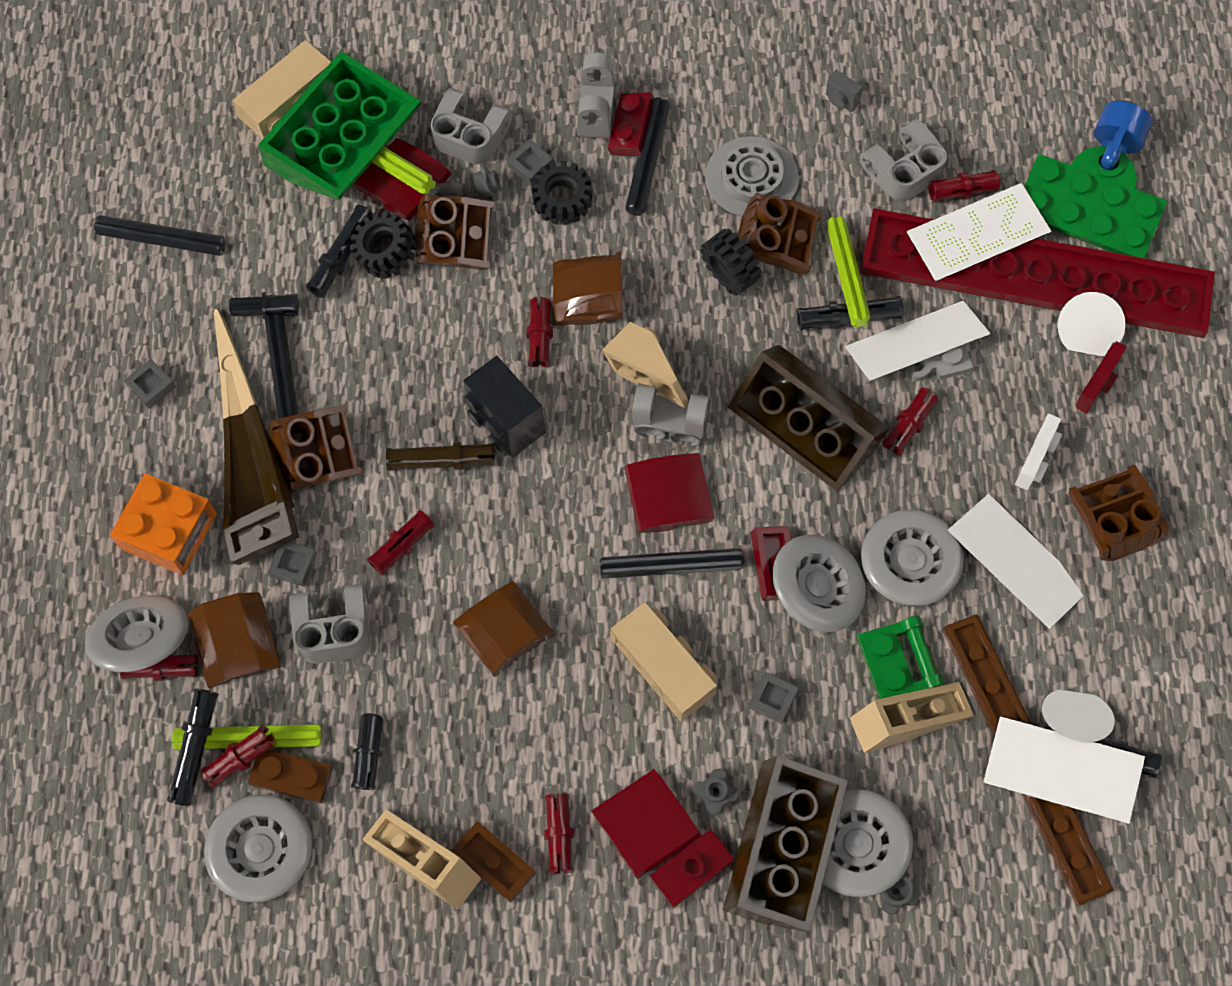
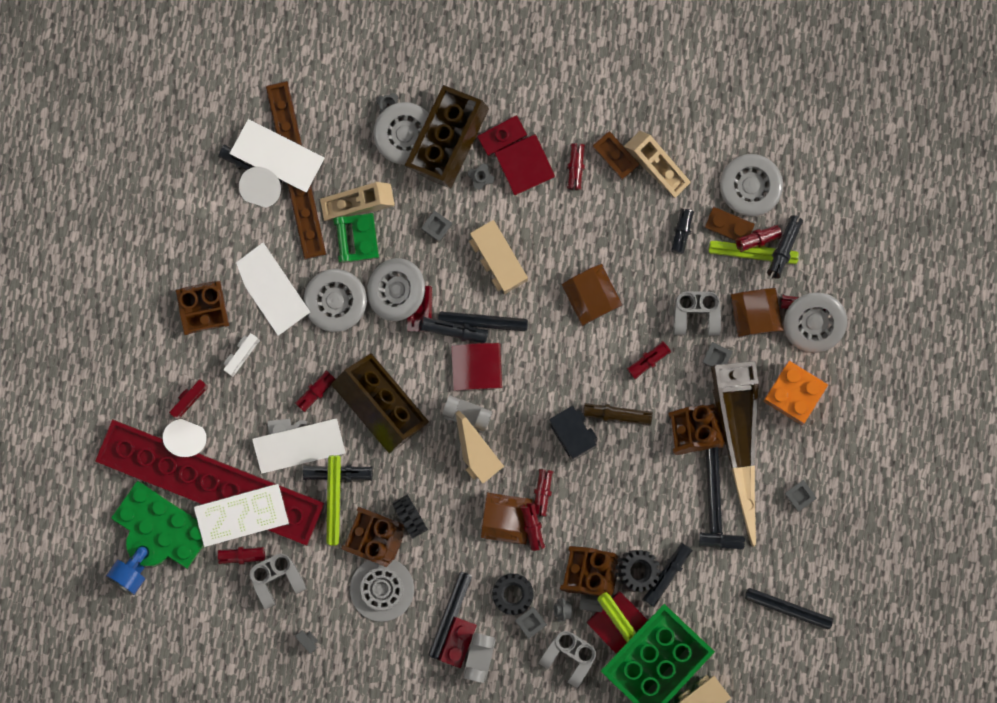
camera: 170 degrees left, 15 degrees up
(546, 280) = (532, 526): none -> dark red pin
(675, 538) = (463, 332): none -> black pin

